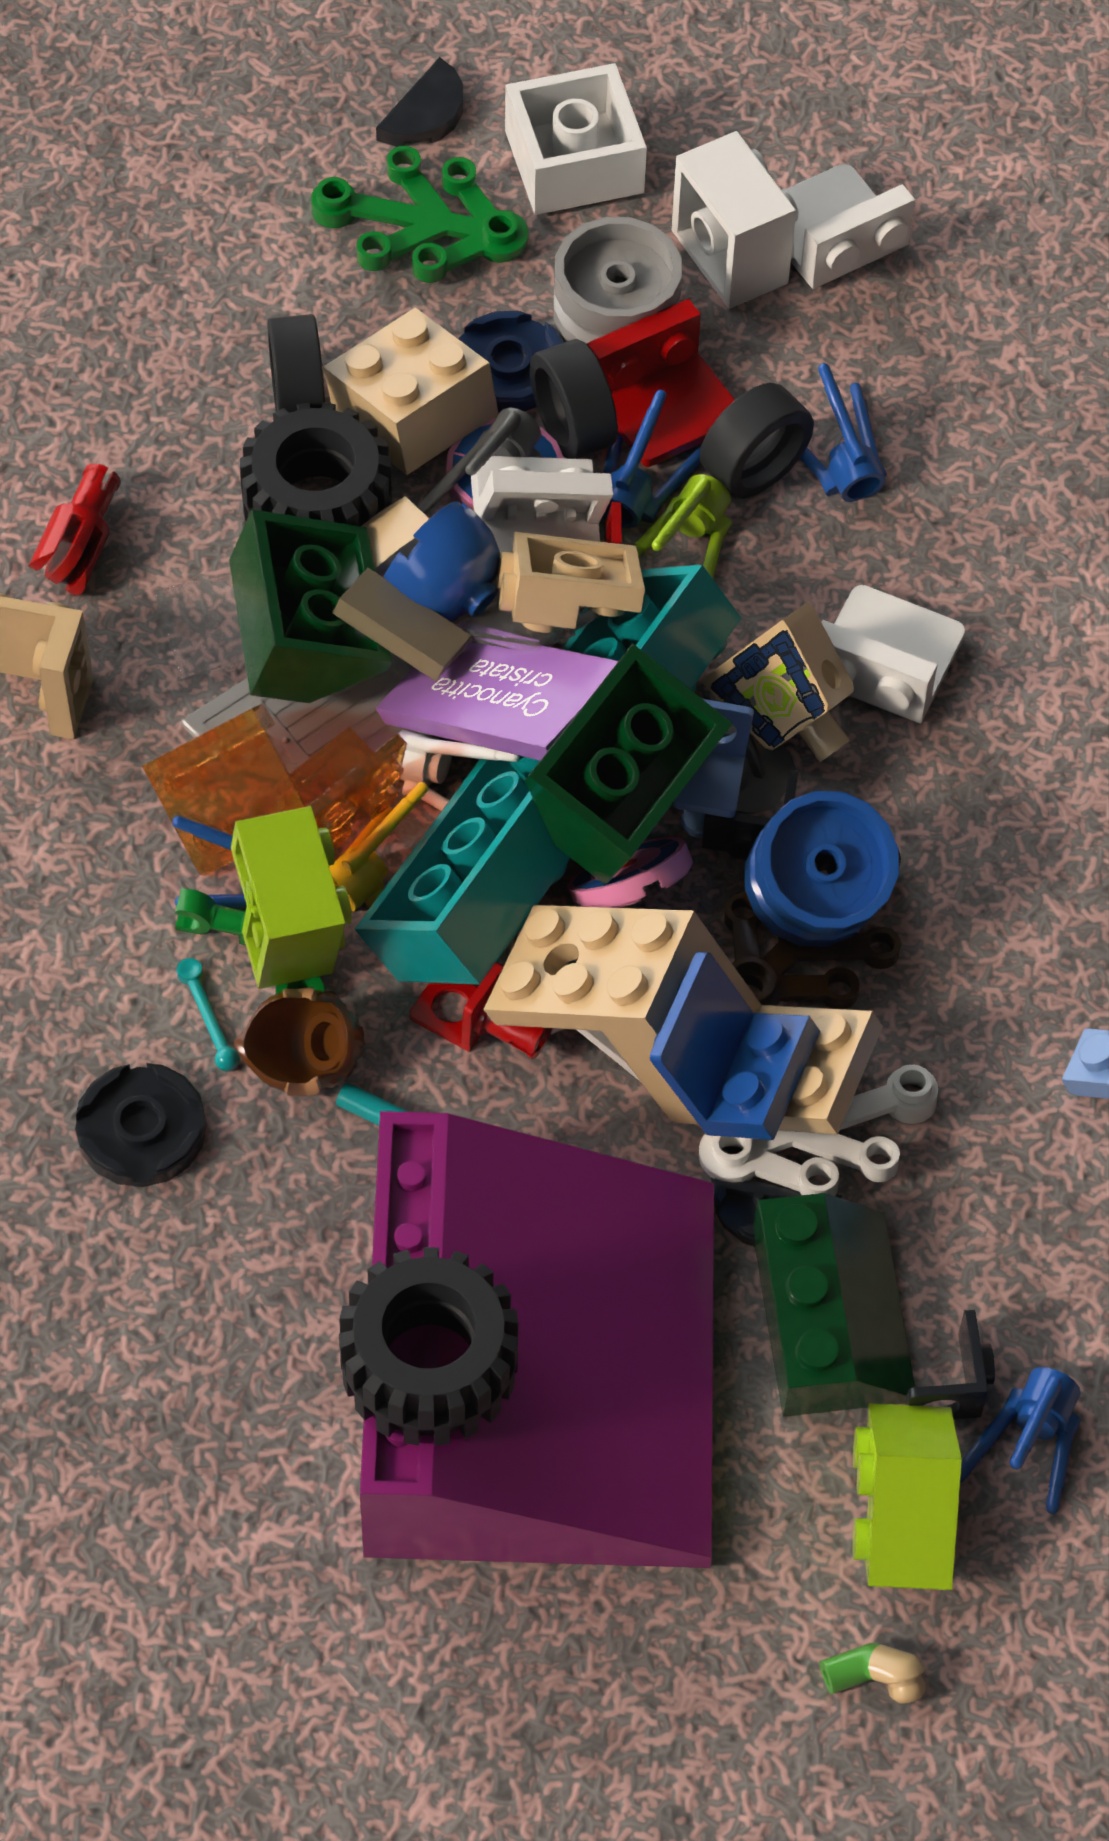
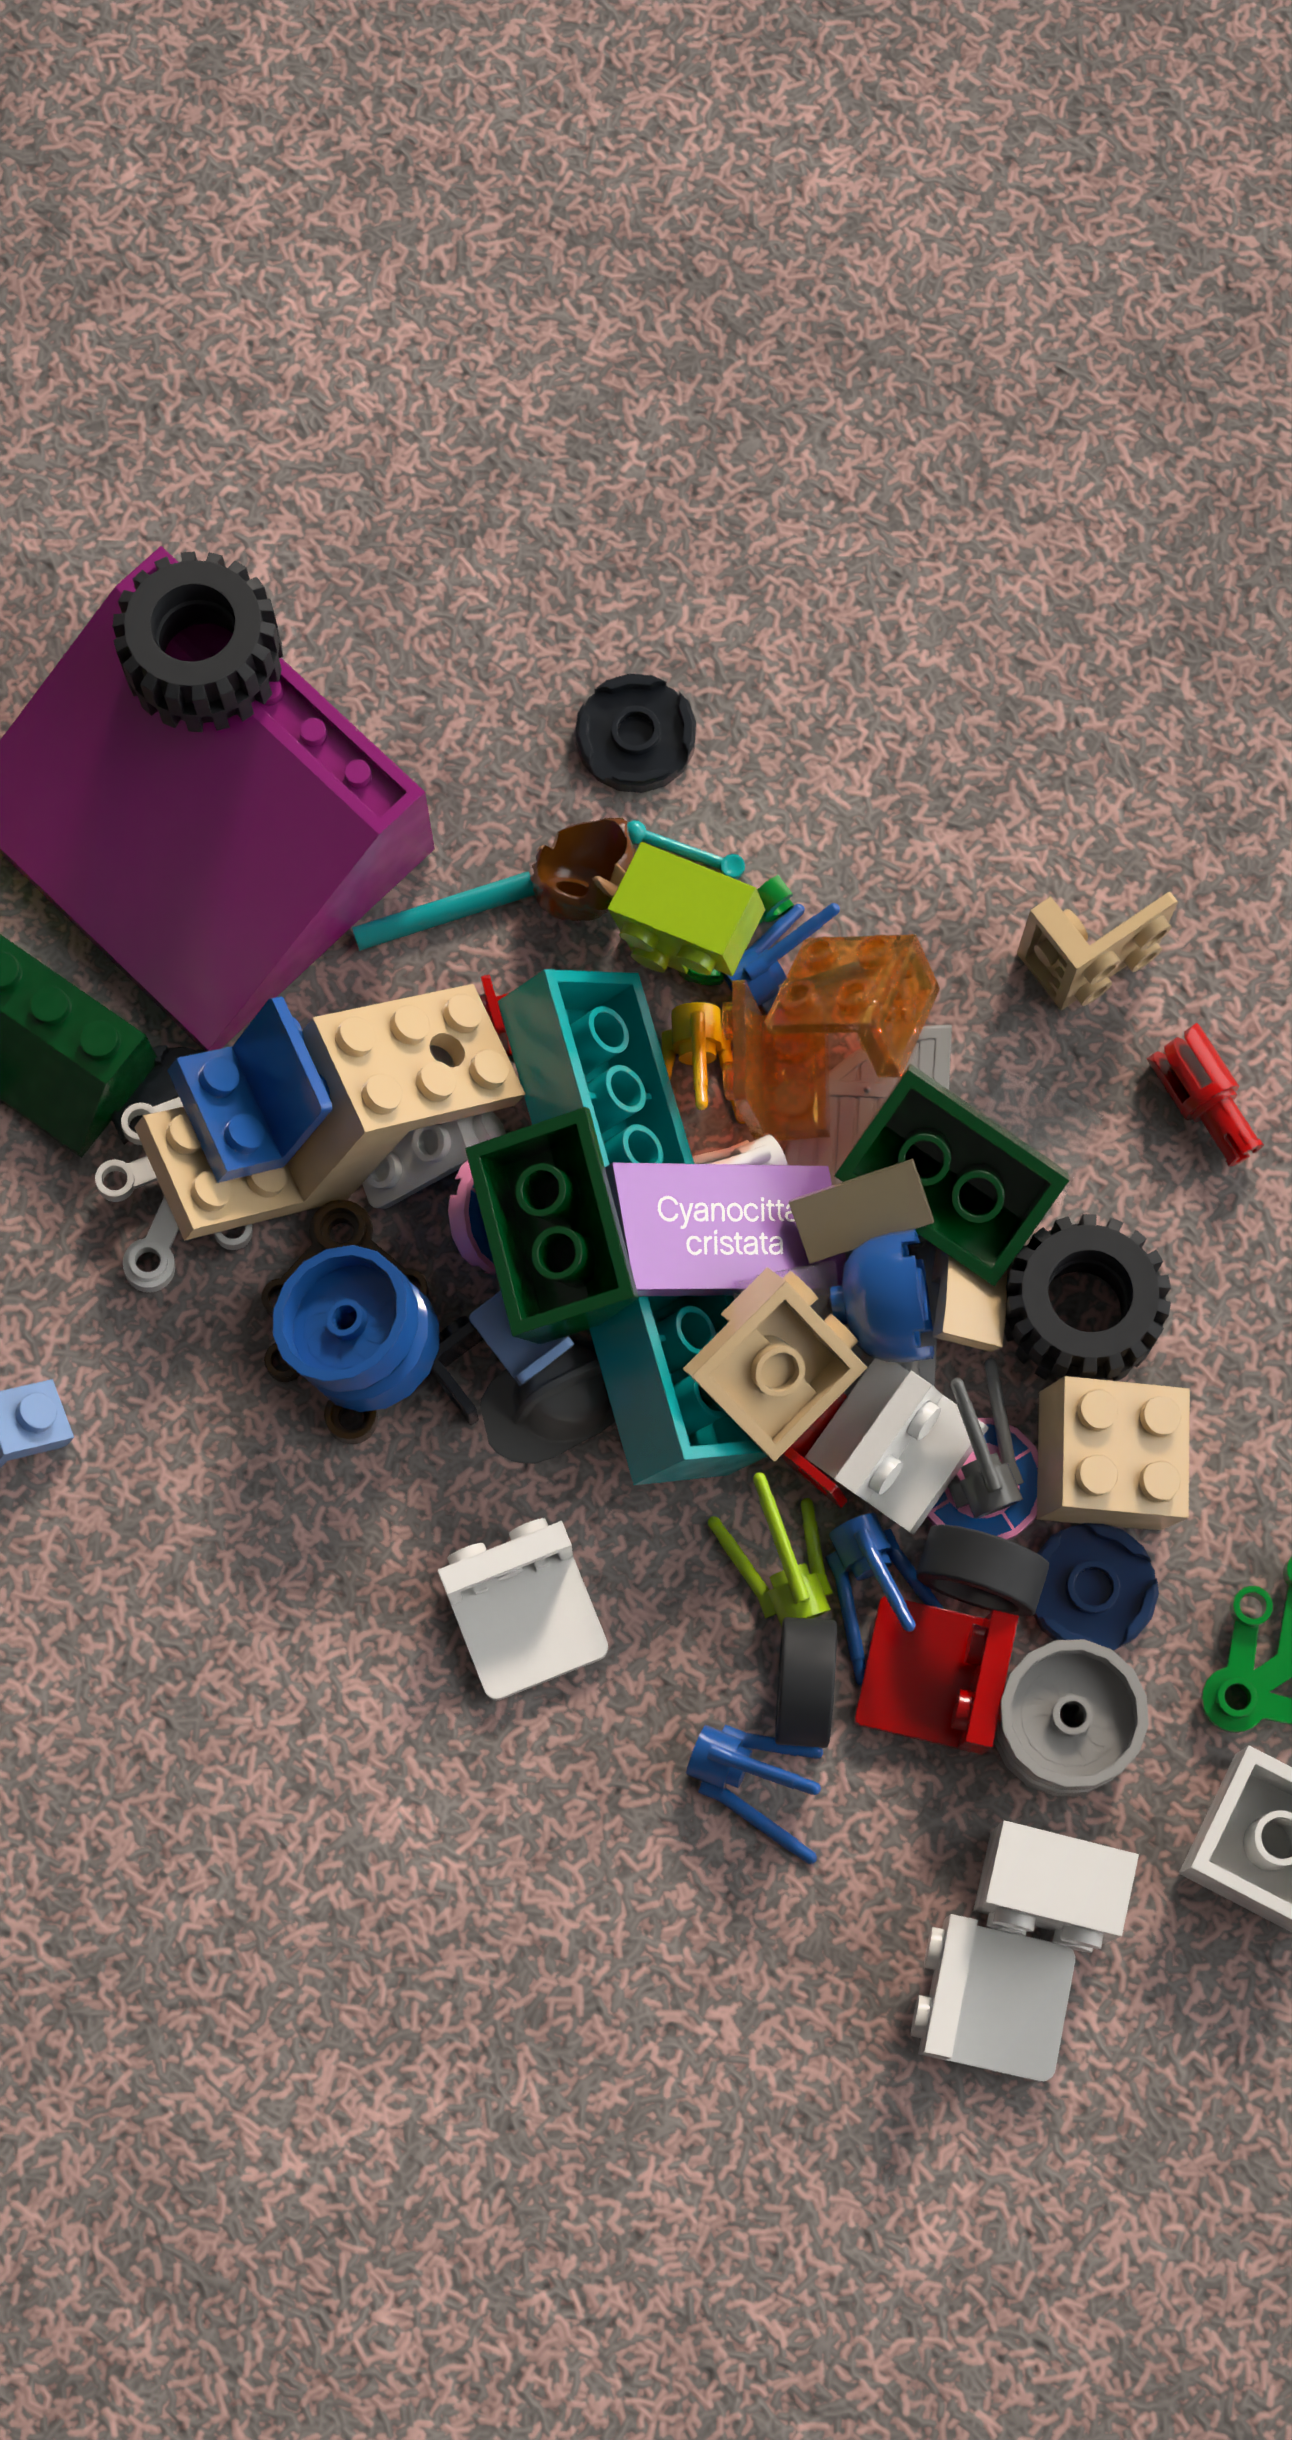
camera: 135 degrees right, 15 degrees up
(295, 362) = (1222, 1374): black tyre -> none
(790, 683) = (551, 1474): torso -> none

